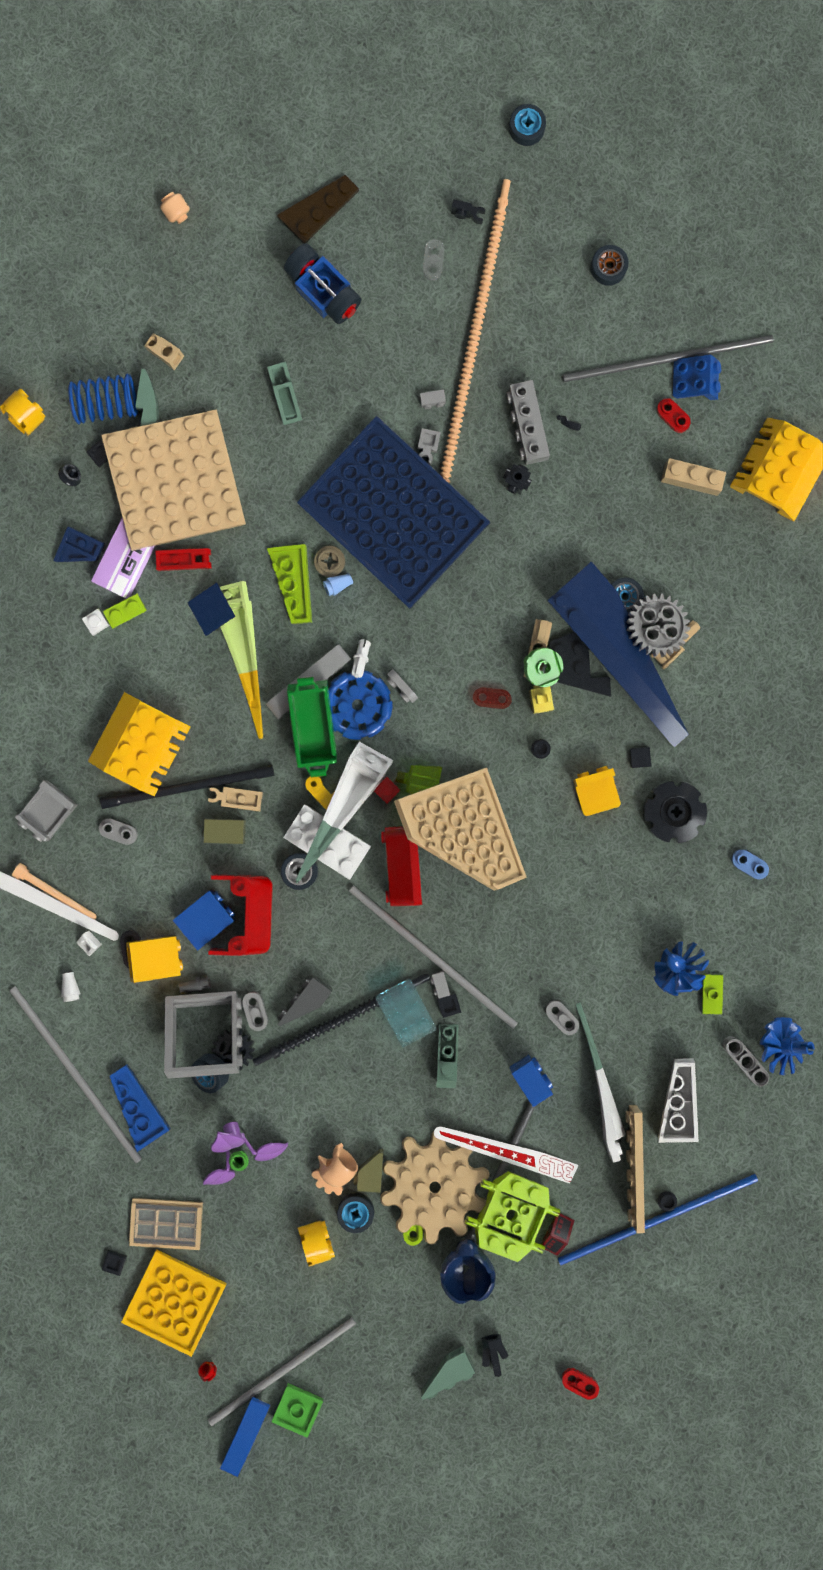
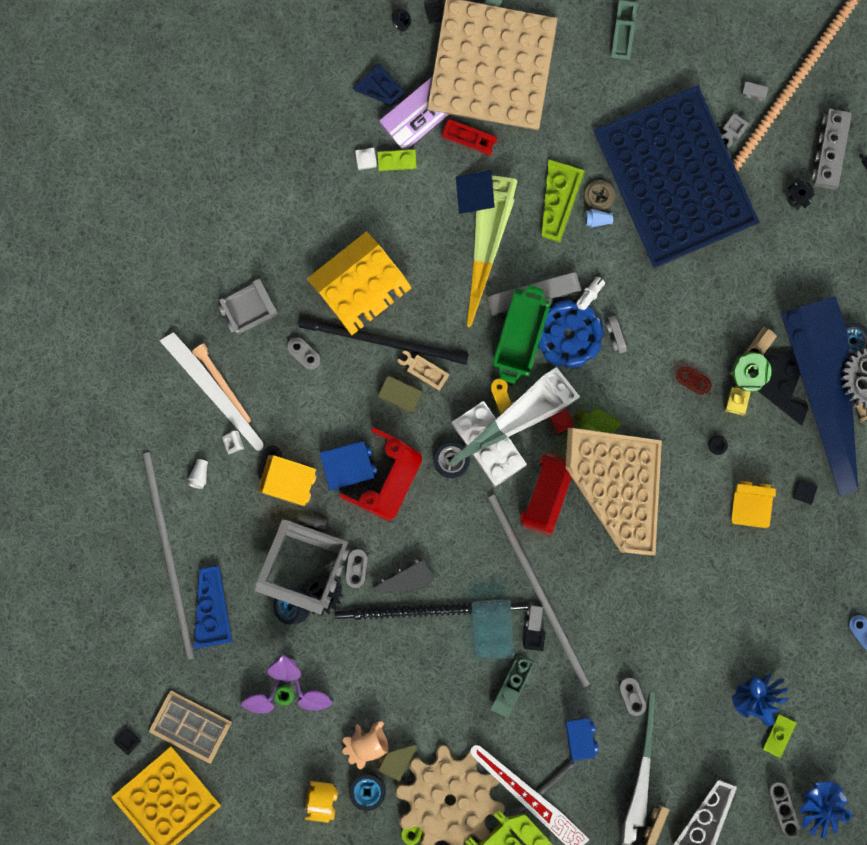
camera: 20 degrees right, 5 degrees down
(682, 826) = (830, 551): black piece -> none

